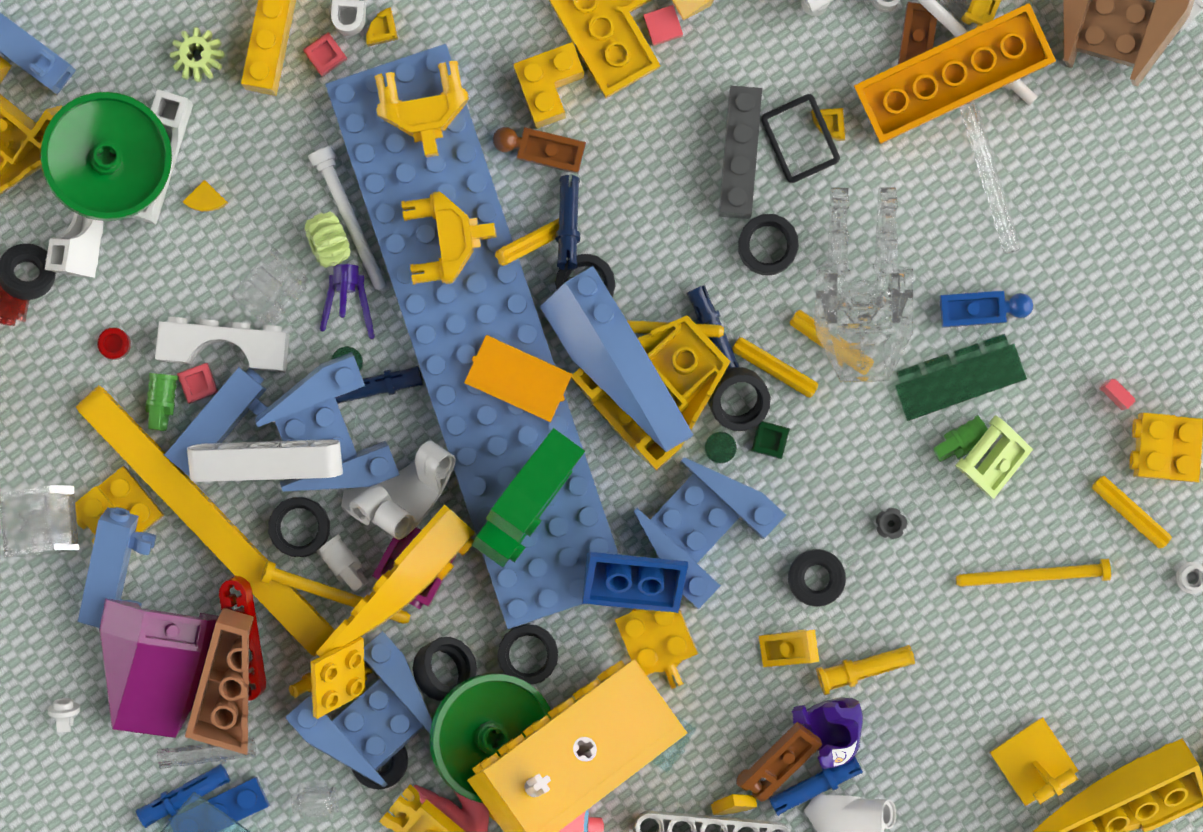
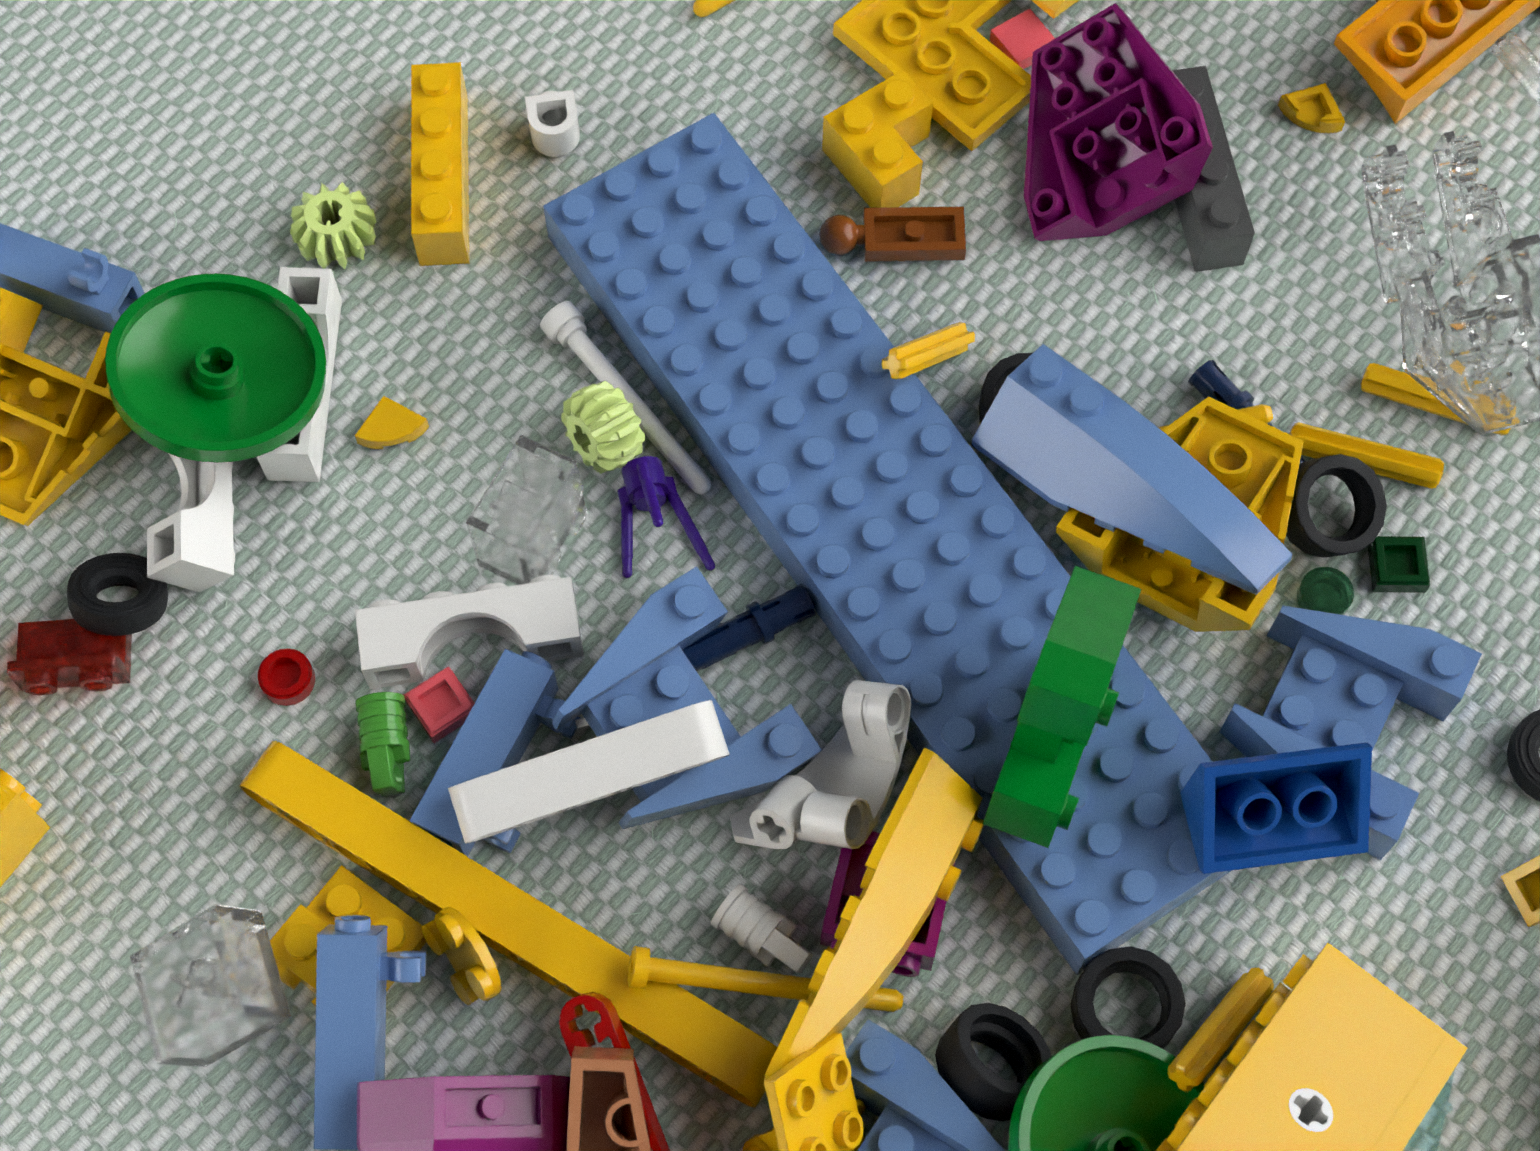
camera: 15 degrees left, 20 degrees down
(180, 547) = (468, 954): none -> yellow piece
(281, 510) = (661, 848): black tyre -> none
(325, 54) = (530, 188): coral tile -> none
(382, 28) = (609, 136): yellow tile -> none
(426, 116) = (708, 201): yellow connector -> none
(456, 236) = (809, 351): yellow connector -> none
(518, 378) = (975, 546): light orange piece -> none
(567, 235) = (980, 329): dark blue pin -> none
(570, 682) = (1220, 1029): none -> yellow axle
(657, 641) = (1338, 905): yellow plate -> none
(682, 116) = (1107, 131): none -> magenta wedge
(744, 244) = (1303, 255): black tyre -> none
(820, 119) = (1321, 121): black piece -> none

